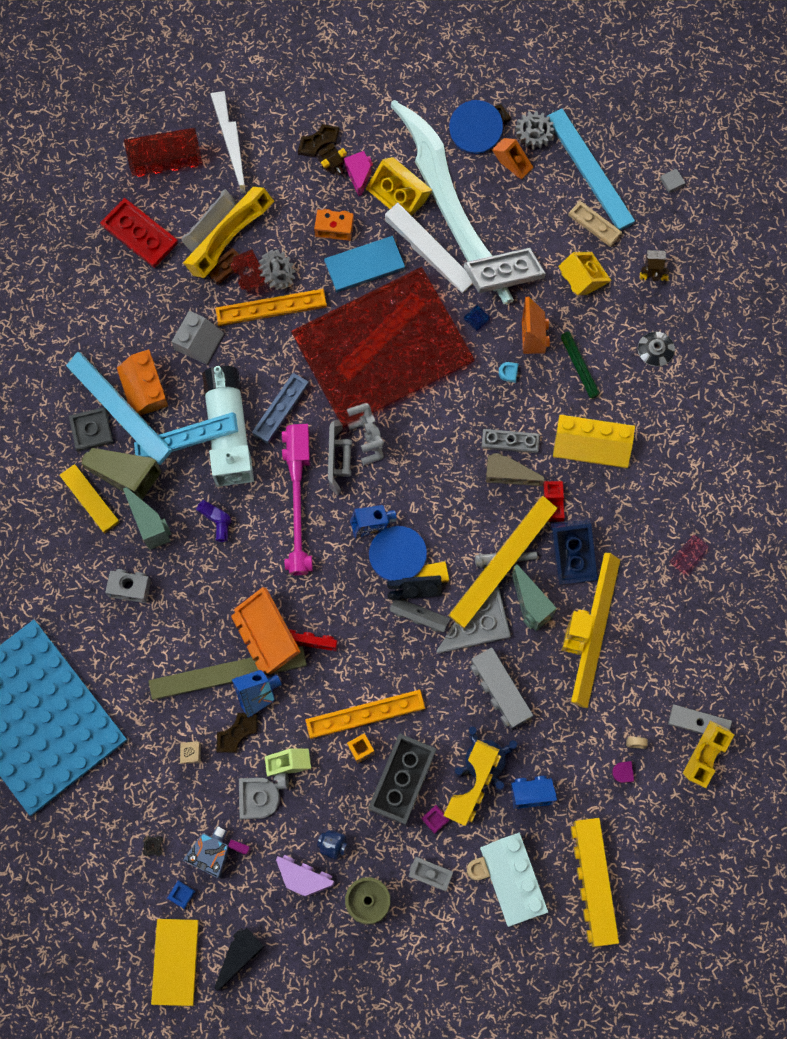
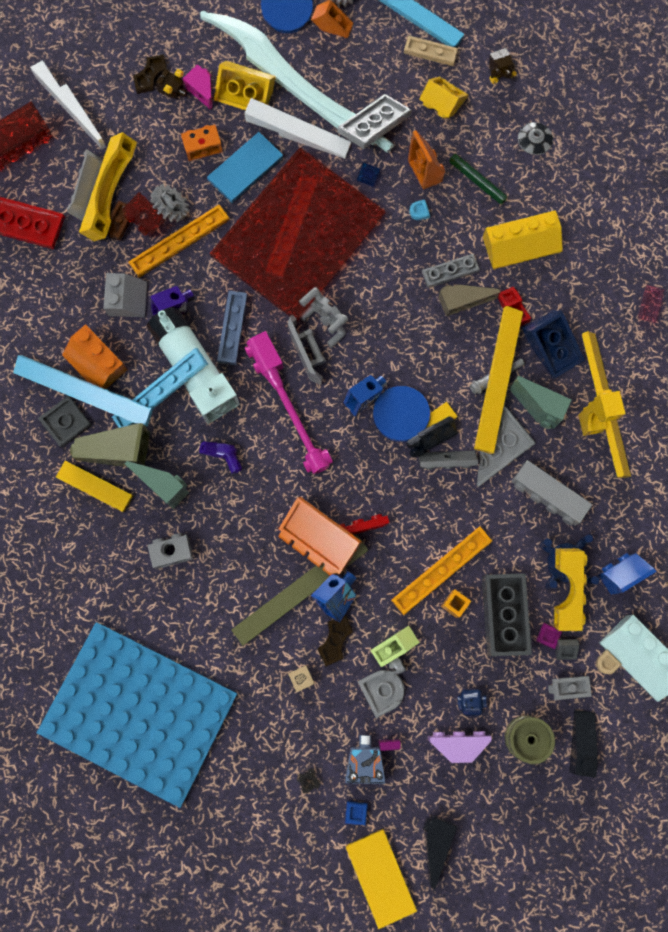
camera: 30 degrees left, 5 degrees up
(236, 358) = (171, 298): none -> dark purple torso
(418, 930) = (584, 745): none -> black slope
(444, 838) = (567, 649): none -> dark grey plate

